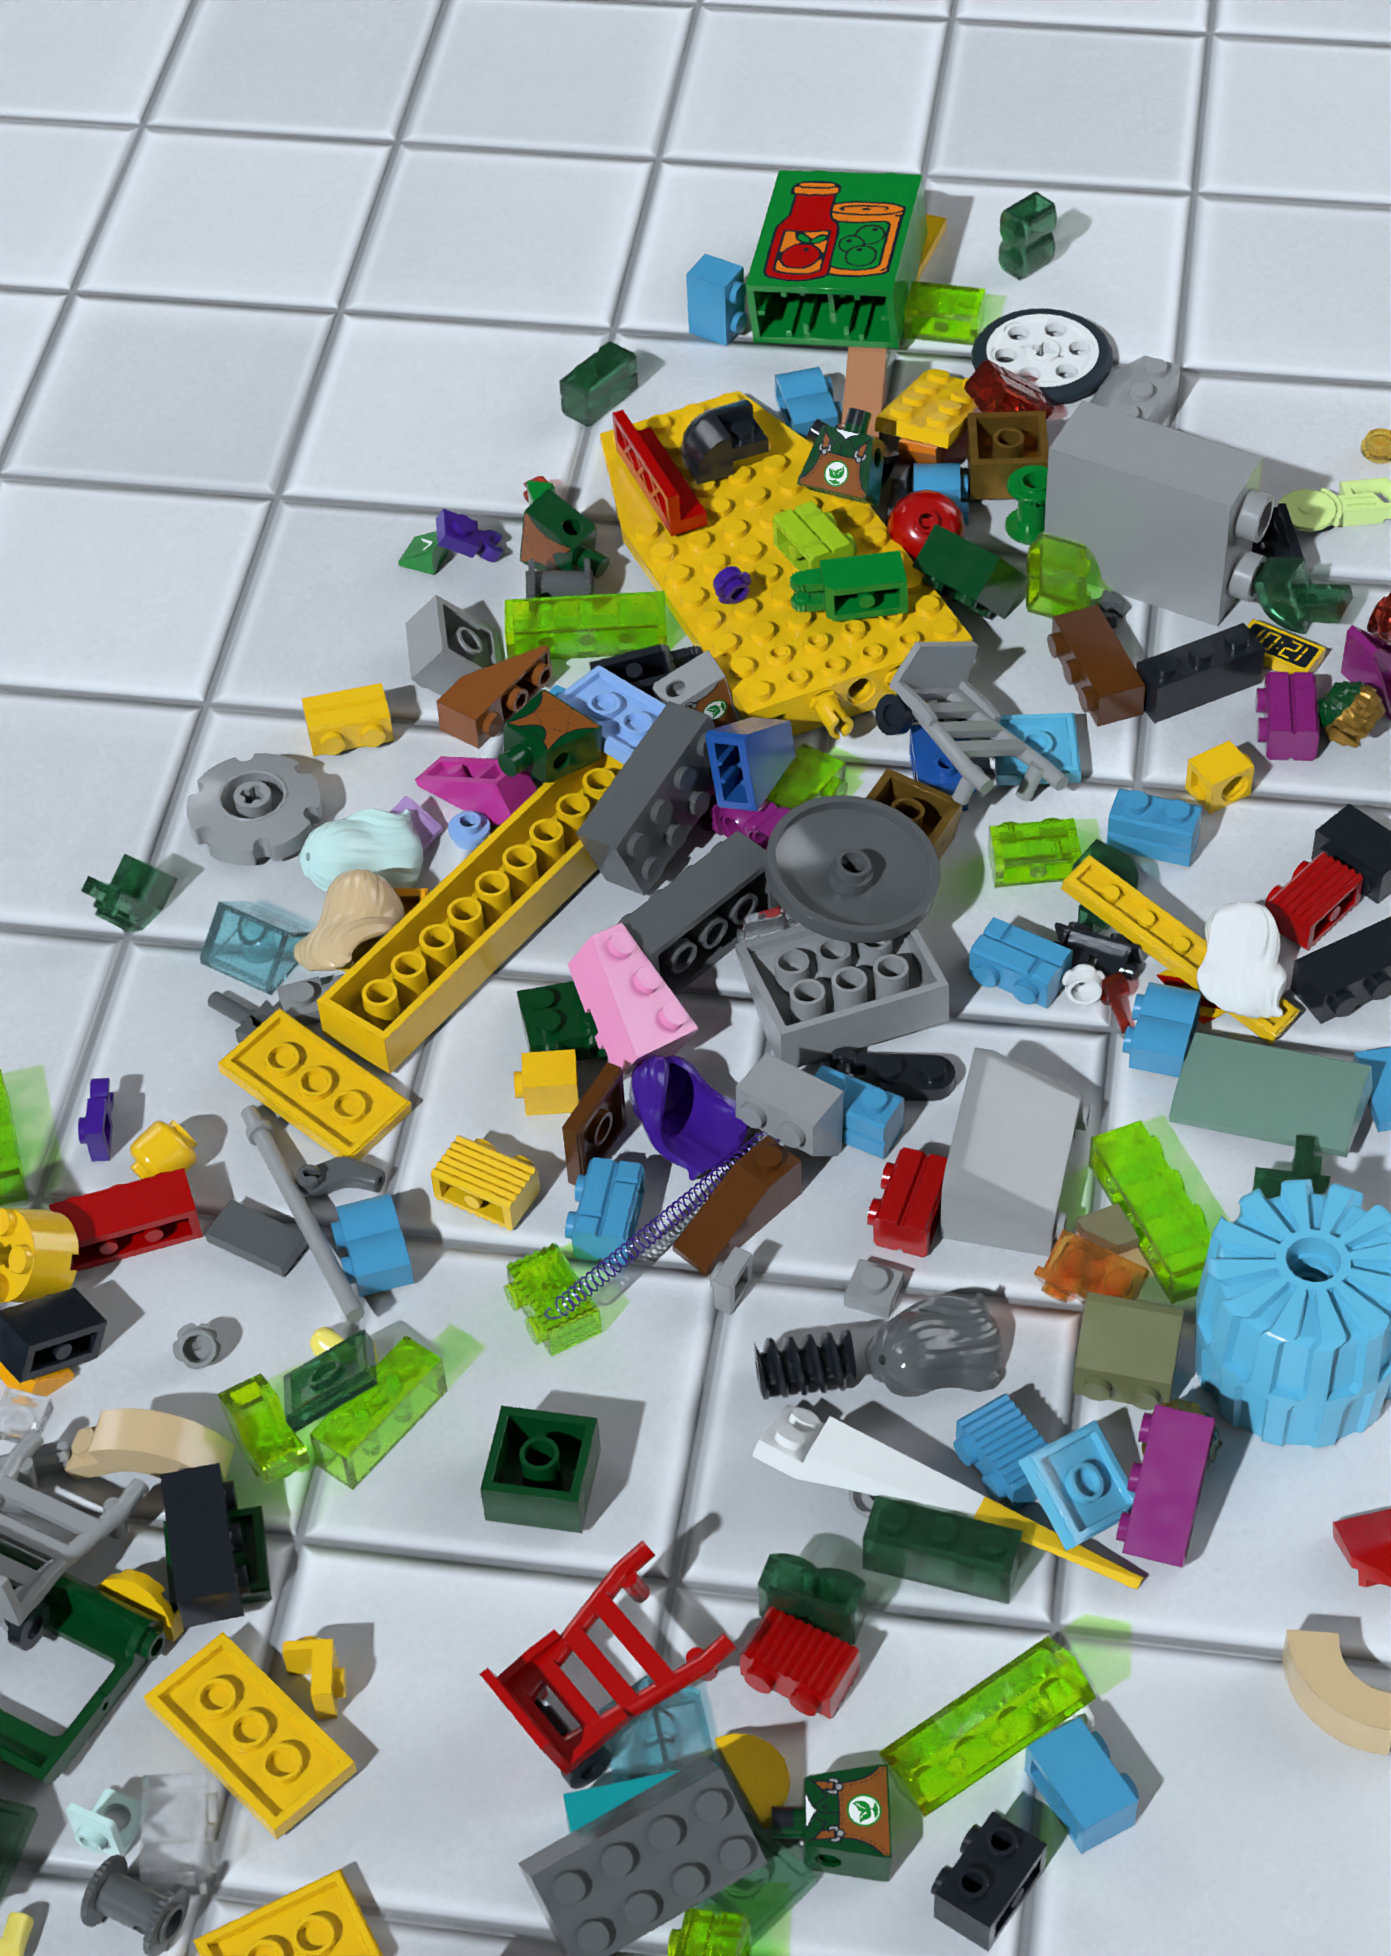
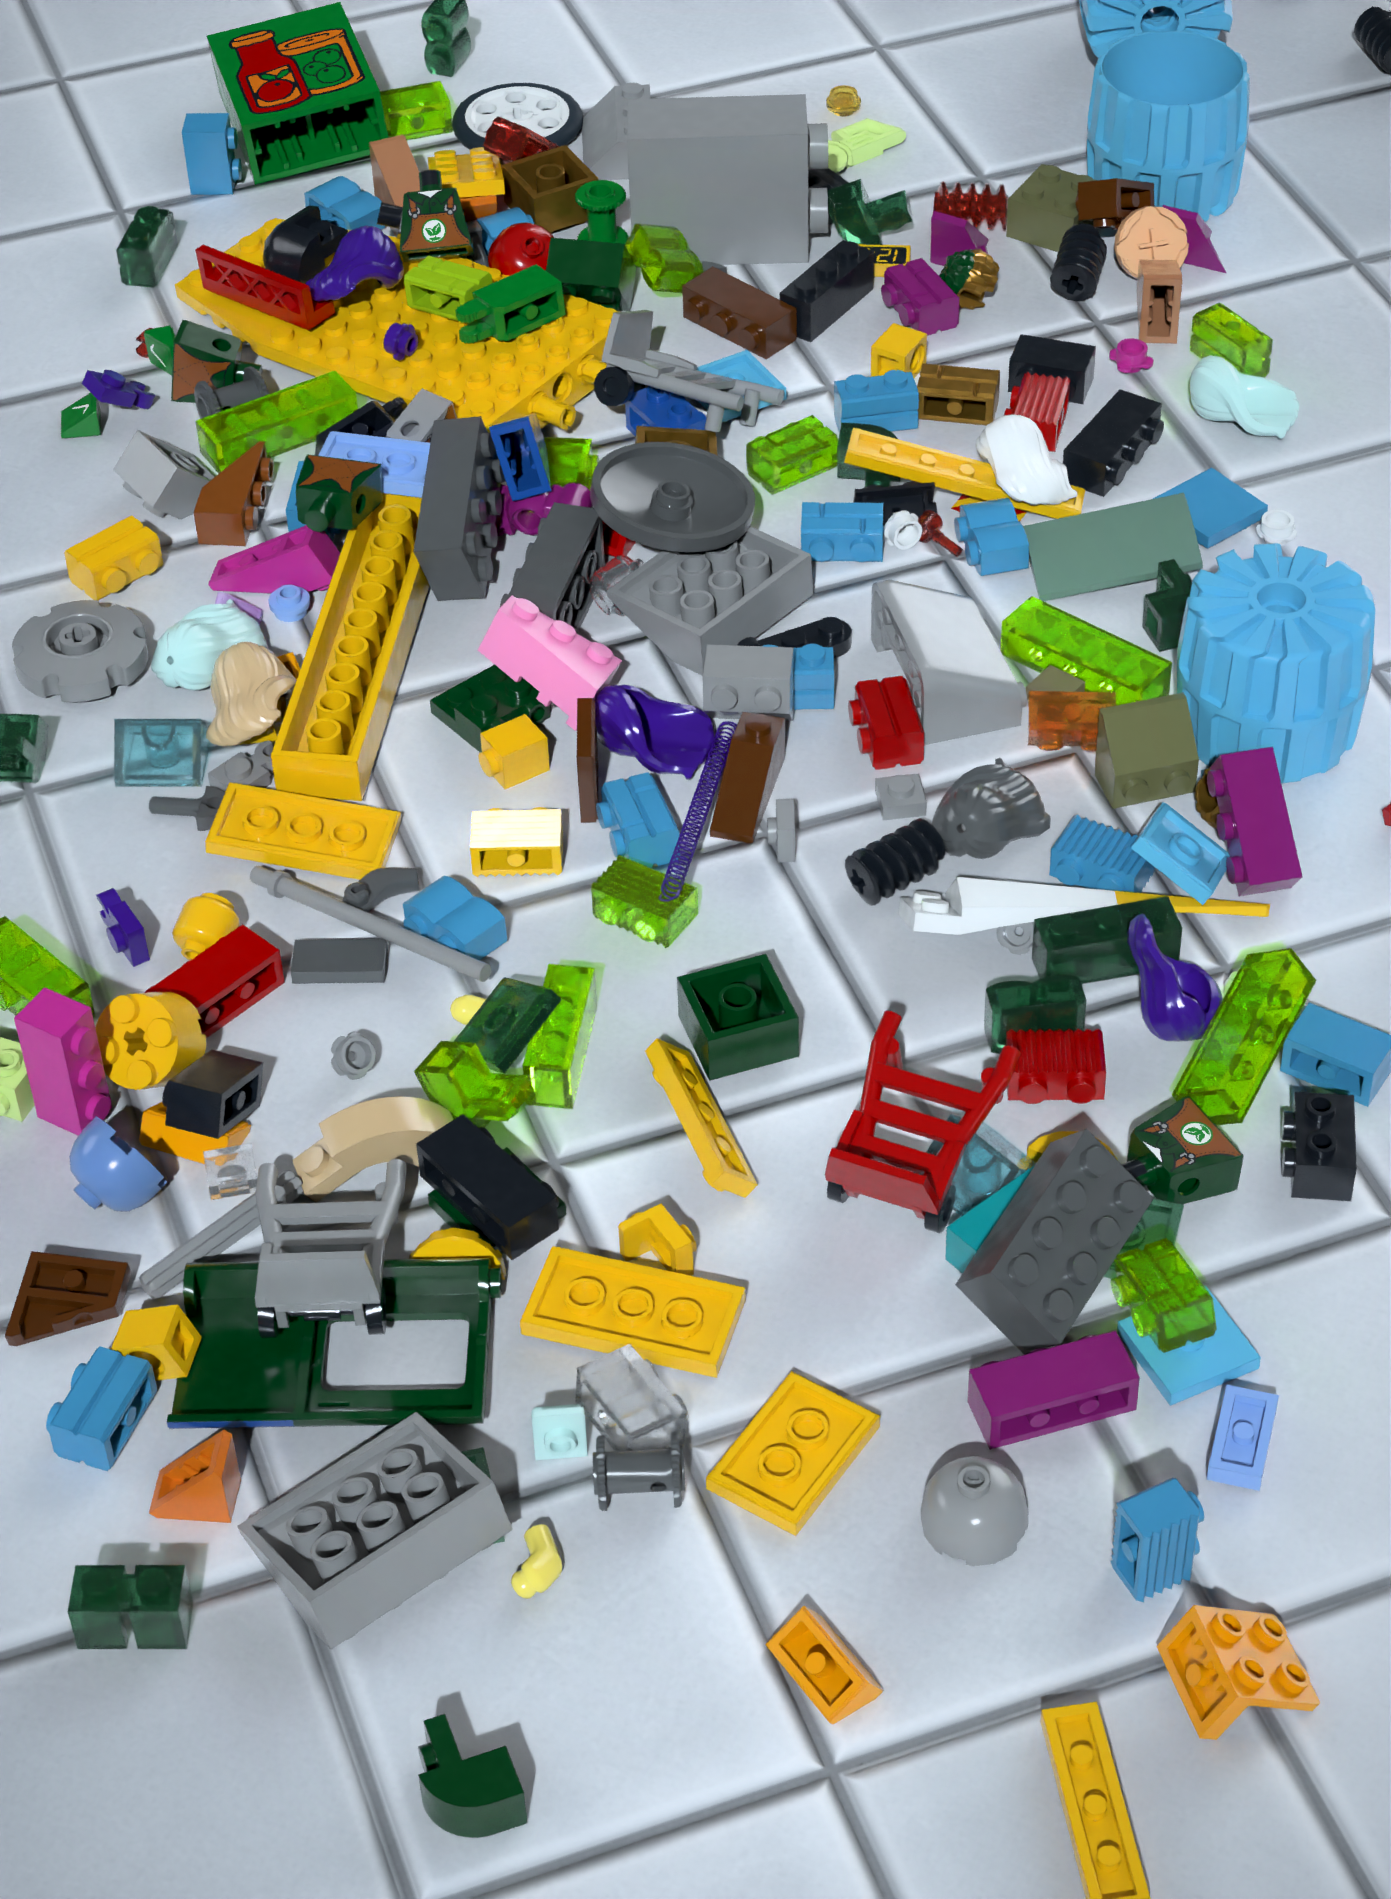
camera: 30 degrees left, 5 degrees down
(442, 1560) = (701, 1119): none -> yellow plate
(754, 480) = (359, 256): none -> dark purple piece
(961, 1633) = (1175, 994): none -> dark purple piece
(1246, 846) = (958, 394): none -> pearl gold brick

